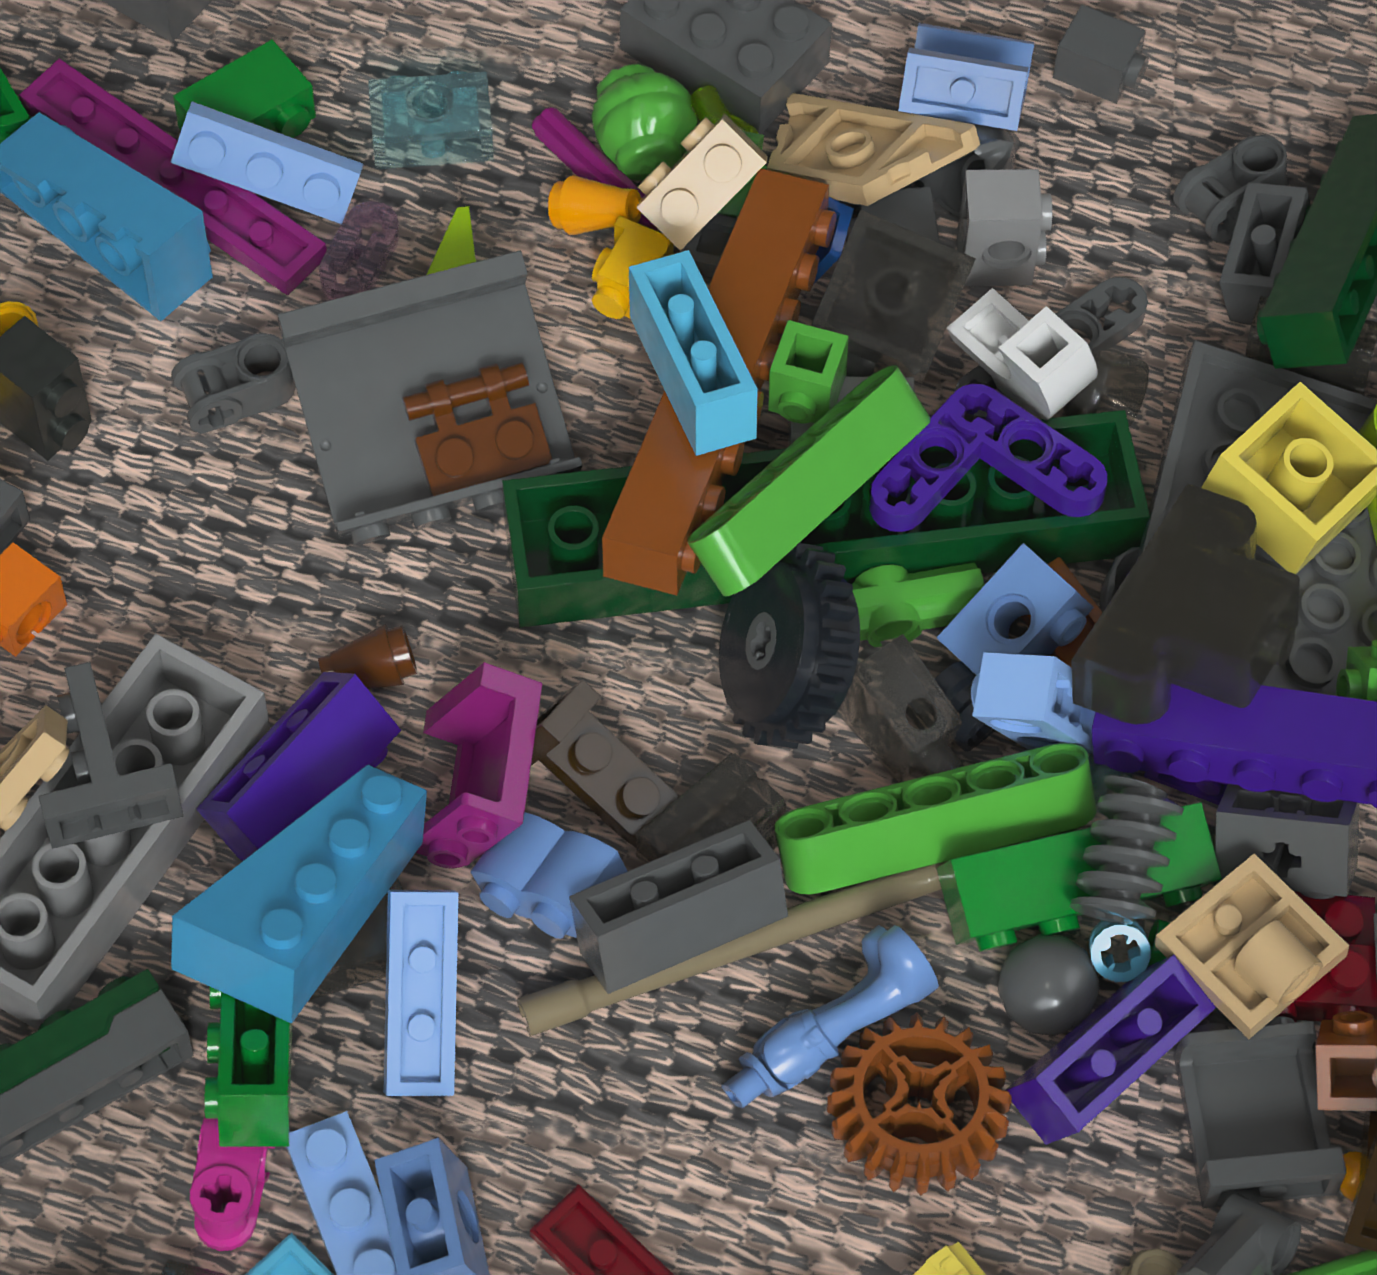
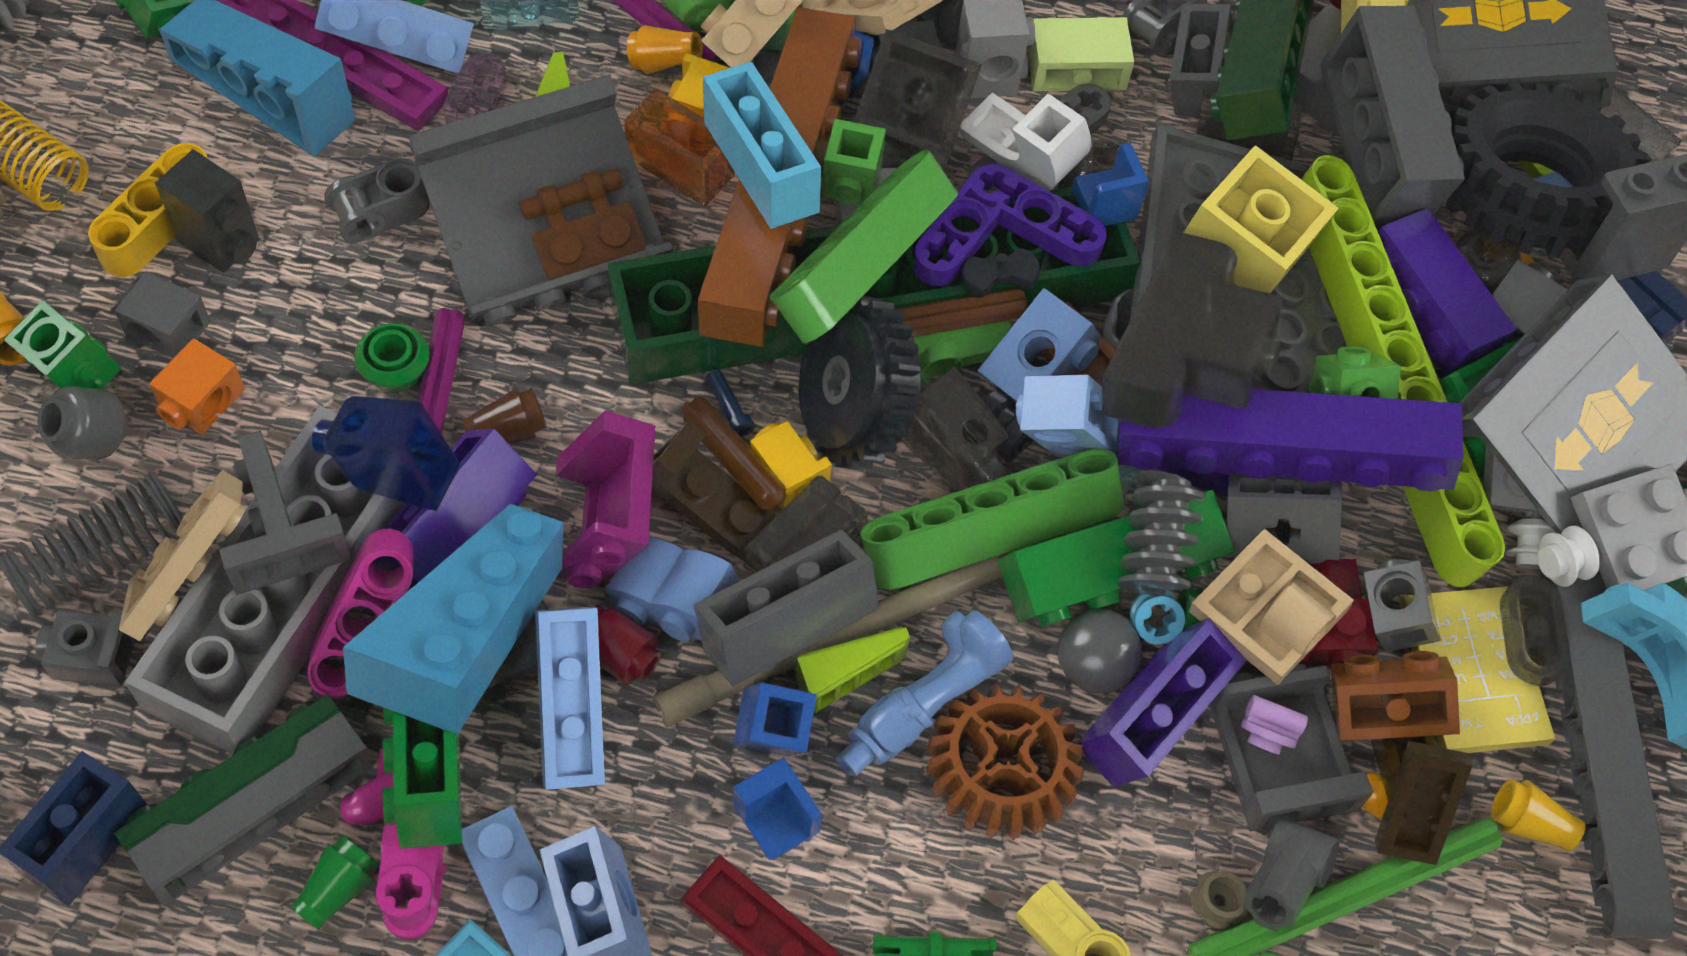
camera: 10 degrees left, 0 degrees up
(144, 1179) = (335, 880): none -> green cone
(185, 1094) = (366, 802): none -> dark pink arm
(192, 849) = (361, 587): none -> dark pink beam
(234, 693) = (389, 450): none -> clear blue torso
(241, 577) = (392, 356): none -> green cone
(291, 607) = (440, 370): none -> magenta axle
(489, 939) = (625, 646): none -> dark red brick
(593, 334) = (677, 147): none -> clear orange brick
(635, 719) = (735, 454): none -> reddish brown axle
(645, 682) = (739, 421): none -> dark blue piece
(648, 1138) = (777, 809): none -> blue panel
(654, 1035) = (775, 719): none -> blue brick
(696, 733) = (789, 458): none -> yellow brick
(743, 981) = (846, 666): none -> lime slope
(922, 565) = (965, 311): none -> reddish brown axle
(950, 521) = (982, 274): none -> black piece
(1114, 237) = (1080, 52): none -> yellowish green brick
(1122, 428) = (1116, 192): none -> blue panel
(1241, 1086) = (1272, 725): none -> lavender plate

